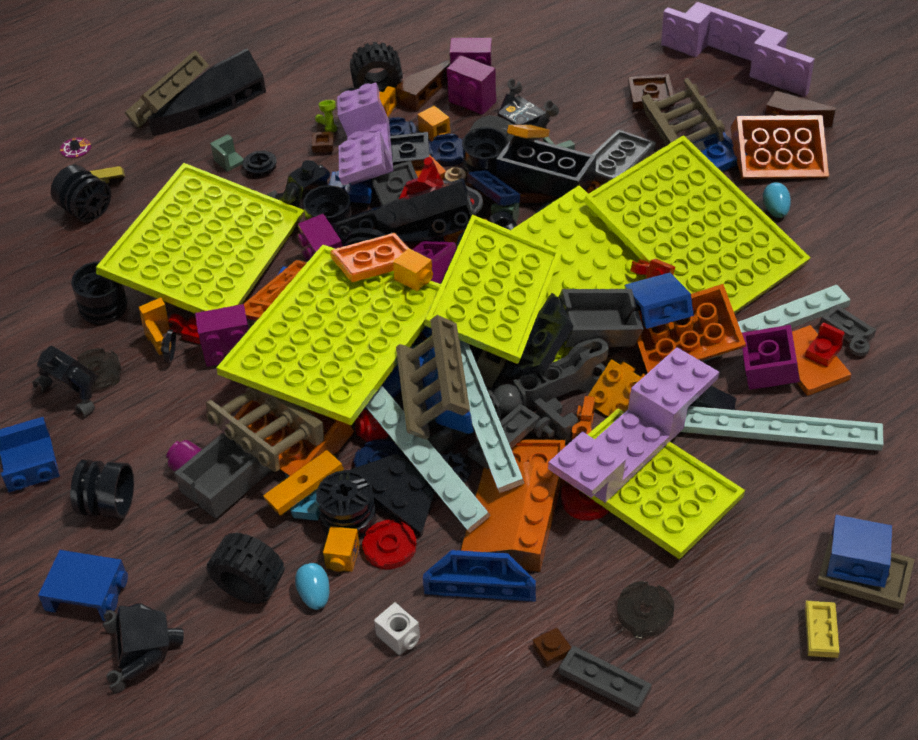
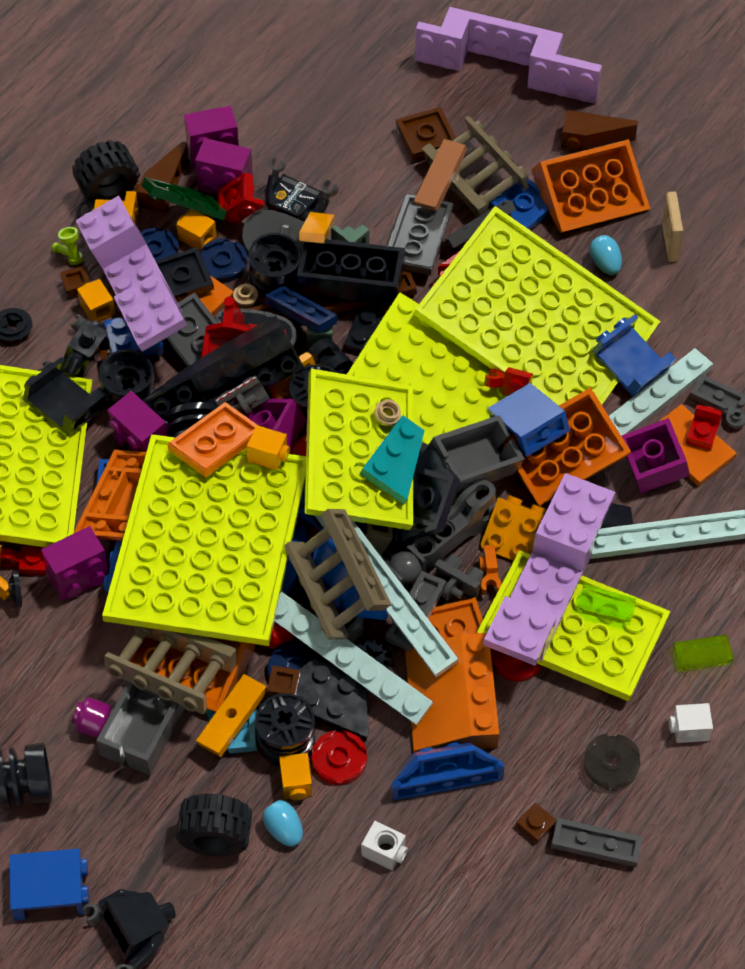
camera: 20 degrees left, 10 degrees up
(269, 214) = (62, 399): none -> black panel
(330, 155) = (96, 301): none -> light orange brick
(359, 462) = (283, 680): none -> reddish brown plate
(416, 234) = (244, 396): none -> dark grey hips
(429, 96) = (184, 197): none -> dark green wing
(474, 105) = (238, 198): none -> red bracket
(522, 301) = (396, 459): none -> teal wing
(528, 263) = (389, 407): none -> tan plate
(649, 116) = (440, 175): none -> nougat tile
(683, 469) = (606, 604): none -> clear neon green tile
(735, 592) = (691, 723): none -> white brick
(767, 534) = (703, 652): none -> clear neon green tile
(772, 276) = (630, 356): none -> blue panel
(842, 187) = (672, 226): none -> tan tile

